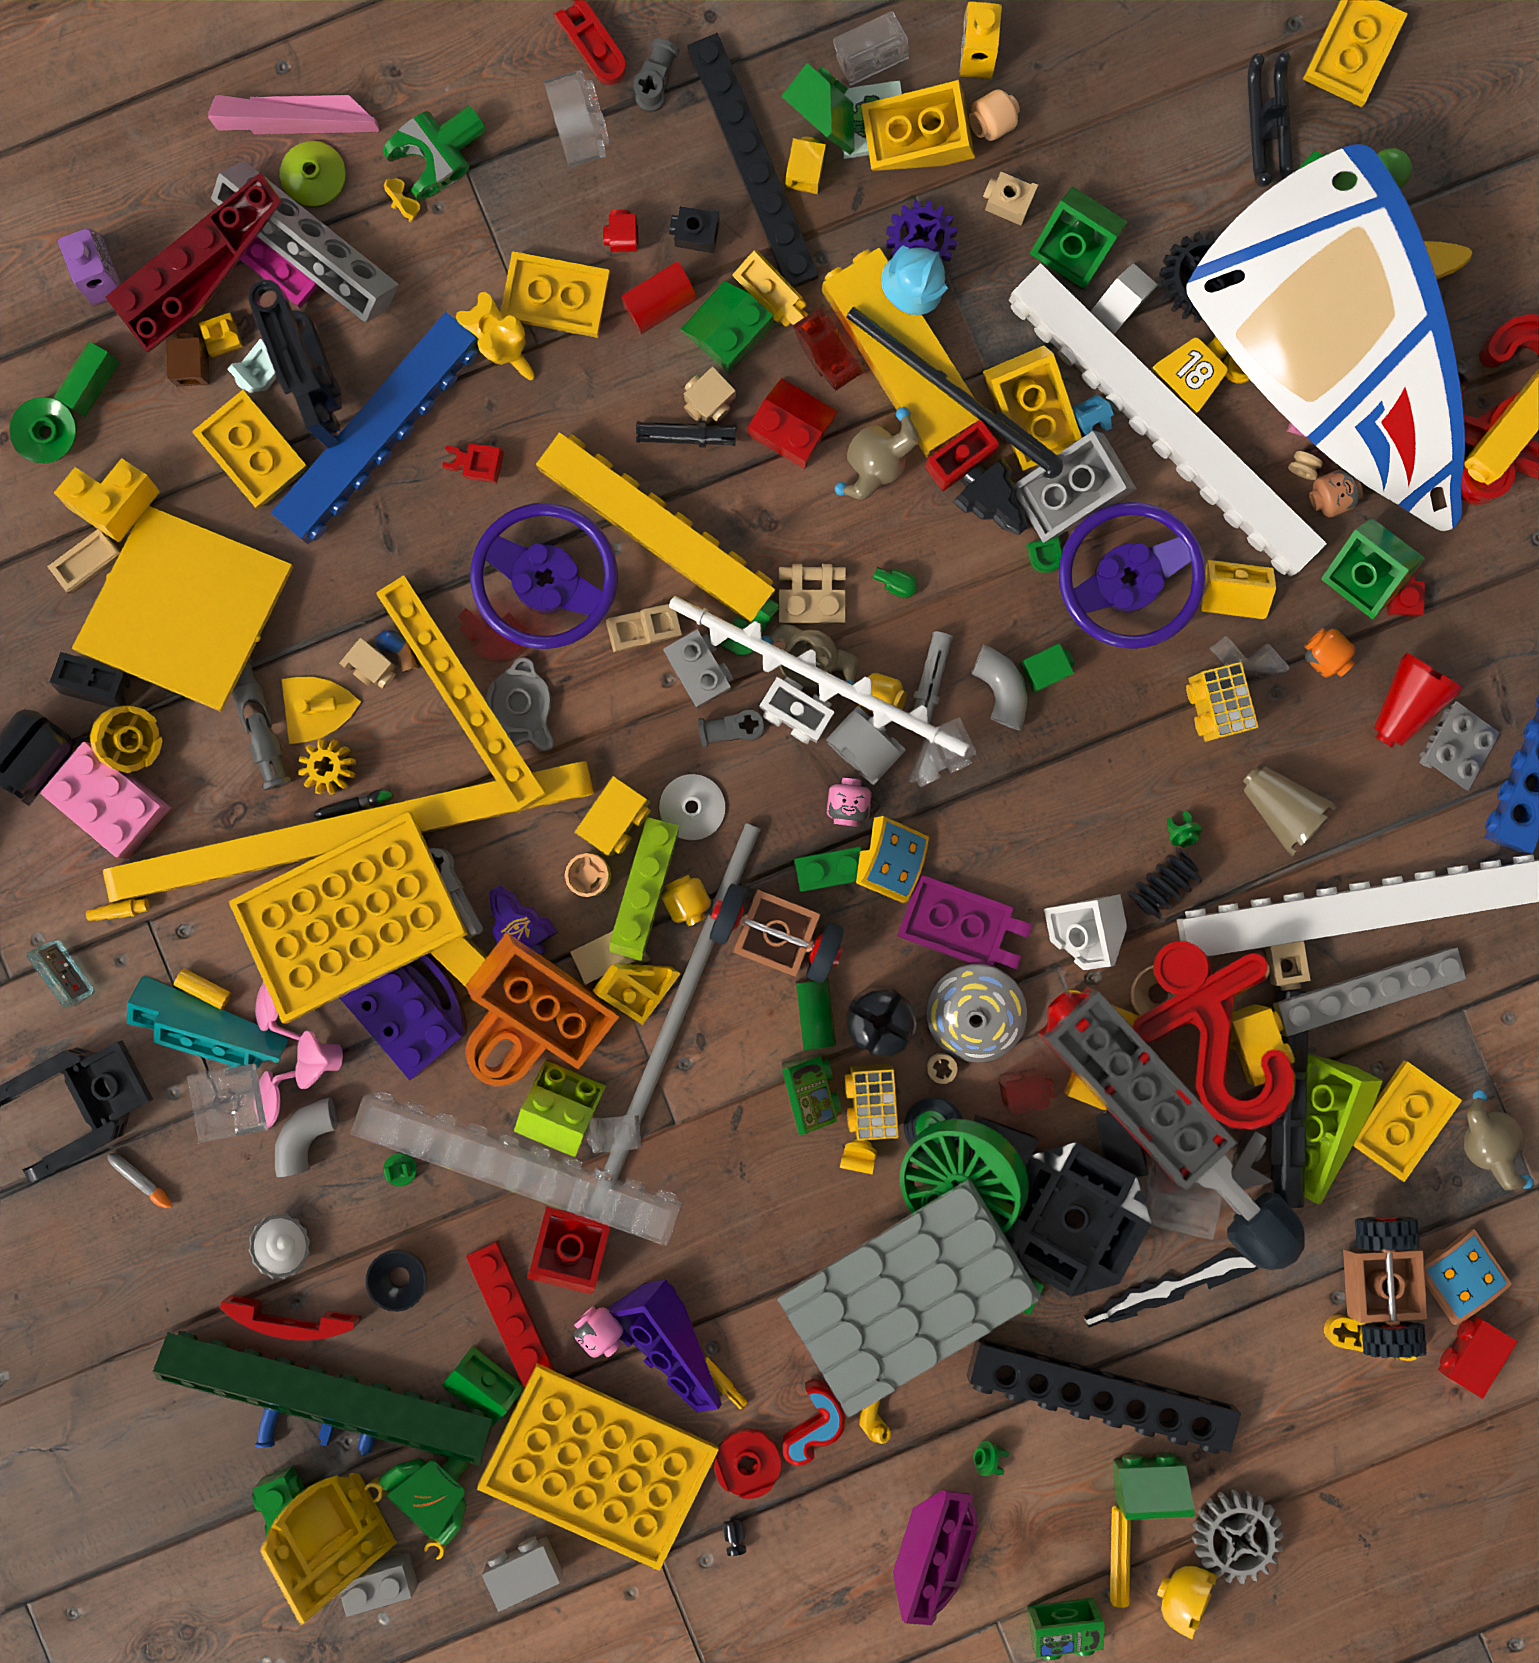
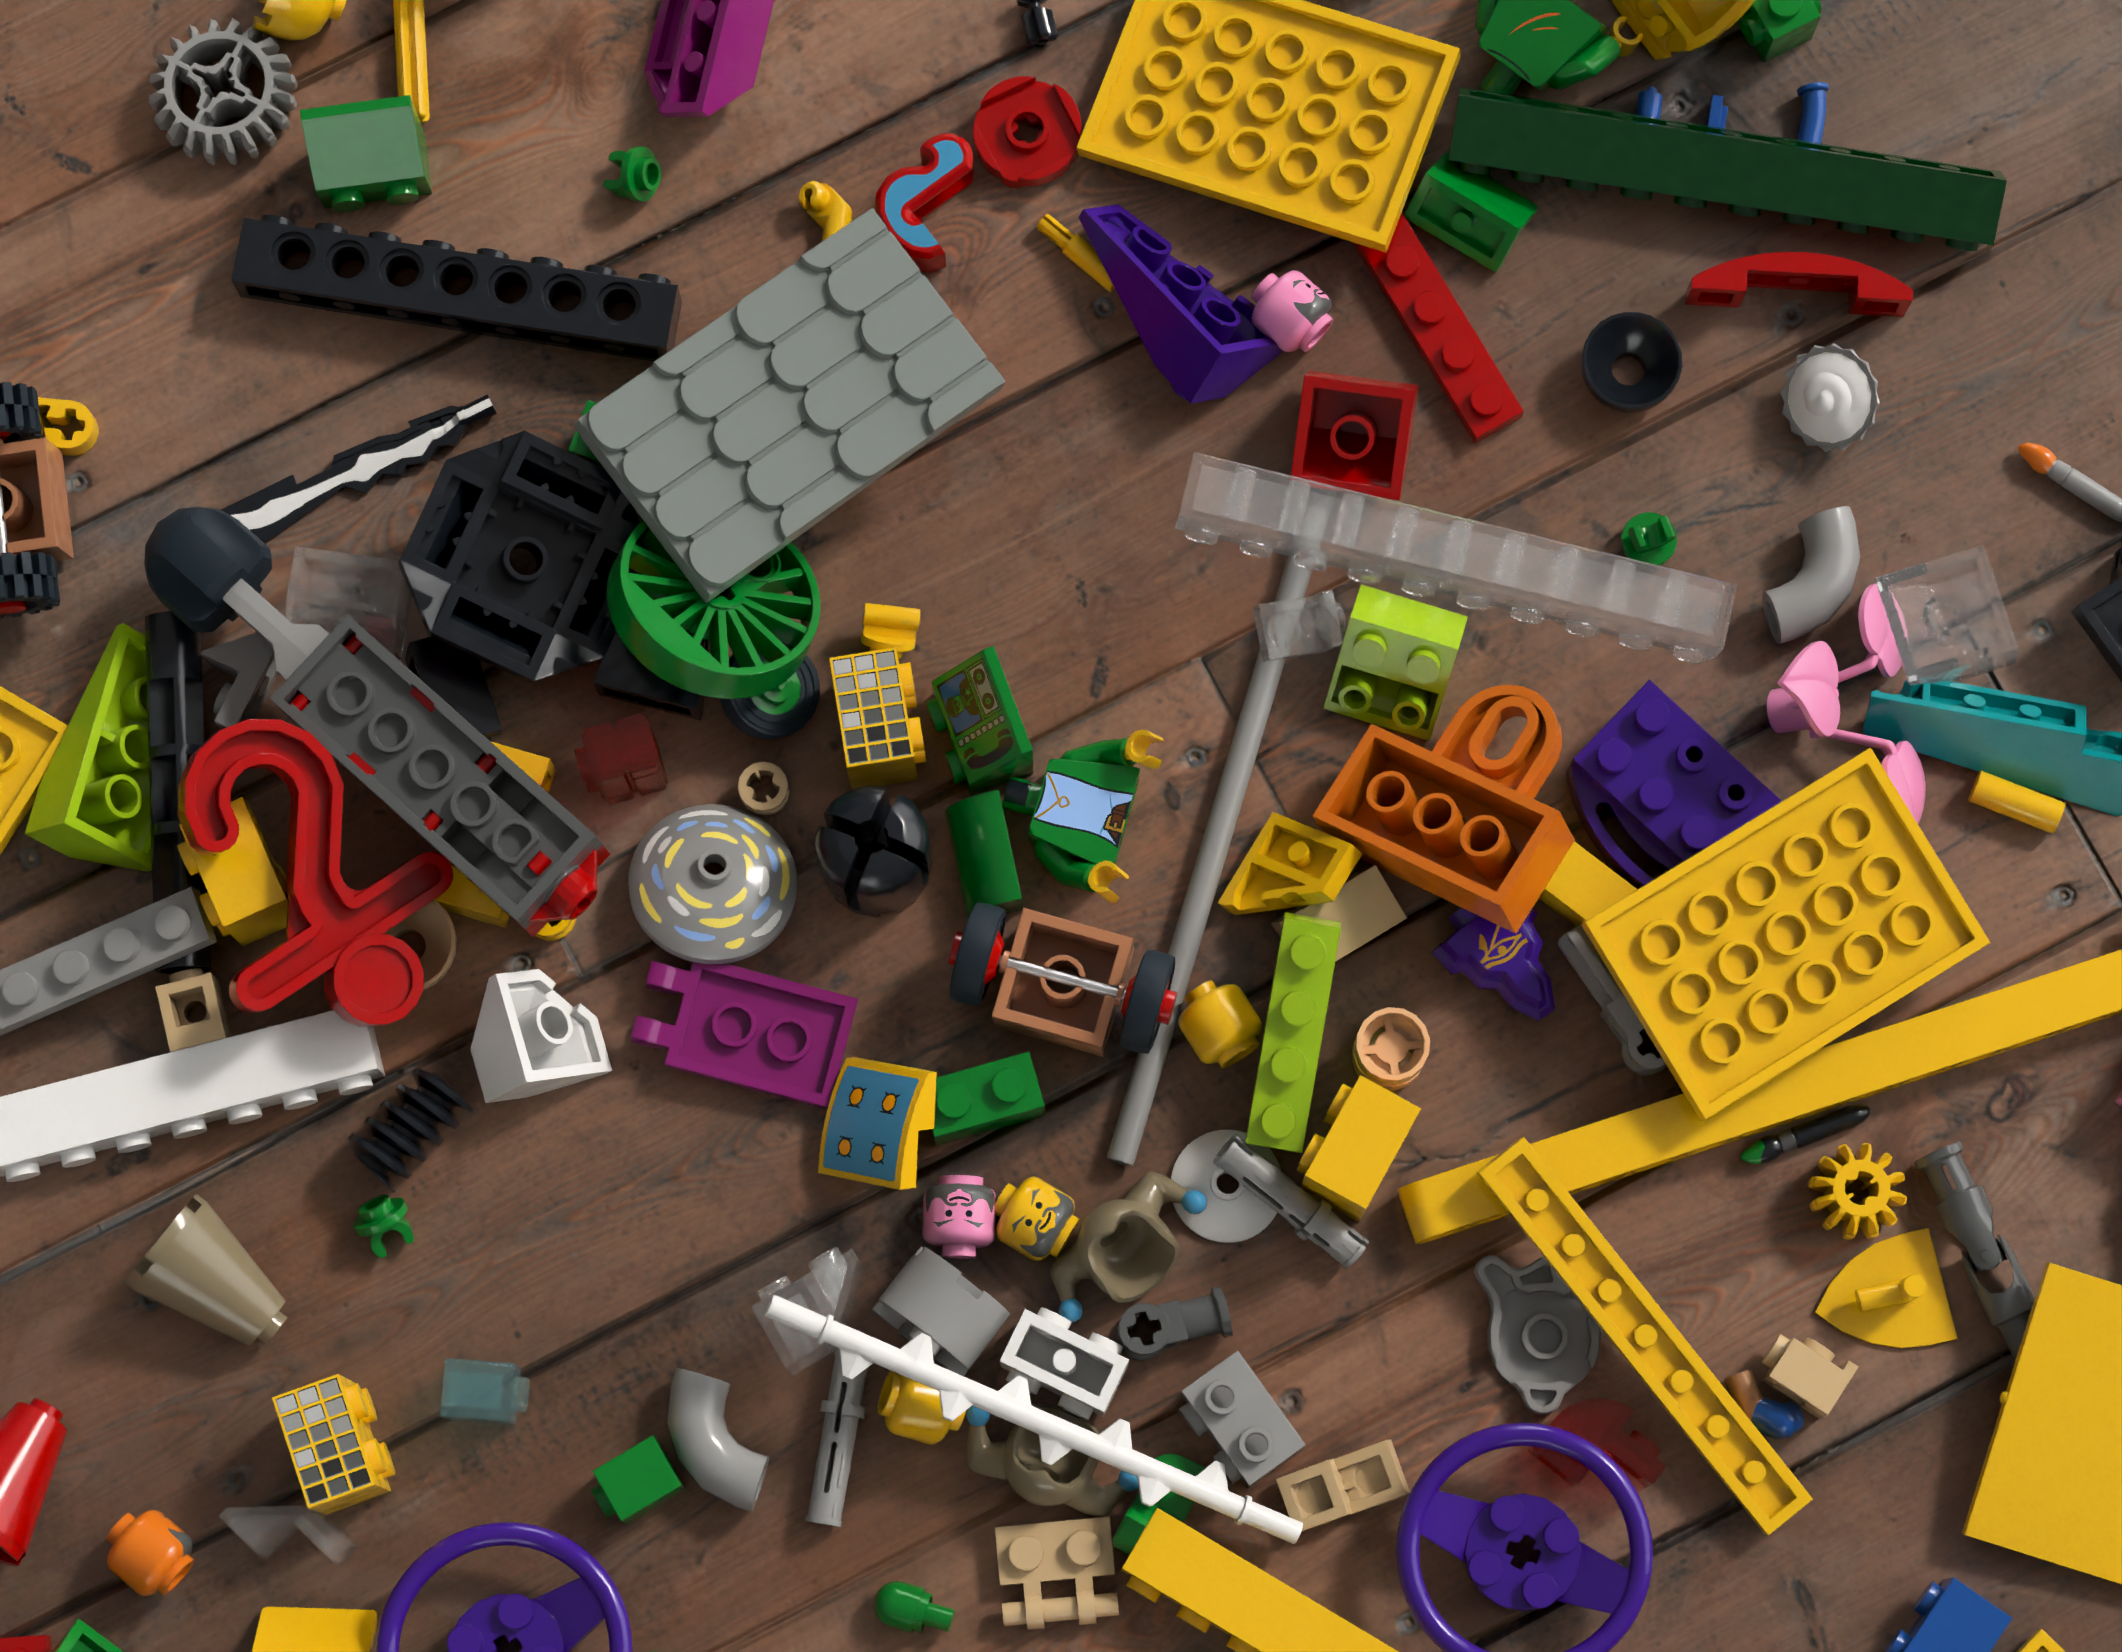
camera: 175 degrees right, 10 degrees down
(647, 783) = (1303, 1211): none -> light grey pin
(754, 1035) = (1084, 809): none -> torso
(755, 776) = (1124, 1244): none -> dark tan piece
(805, 797) = (1035, 1218): none -> yellow head
(1132, 727) = (483, 1391): none -> clear light blue brick

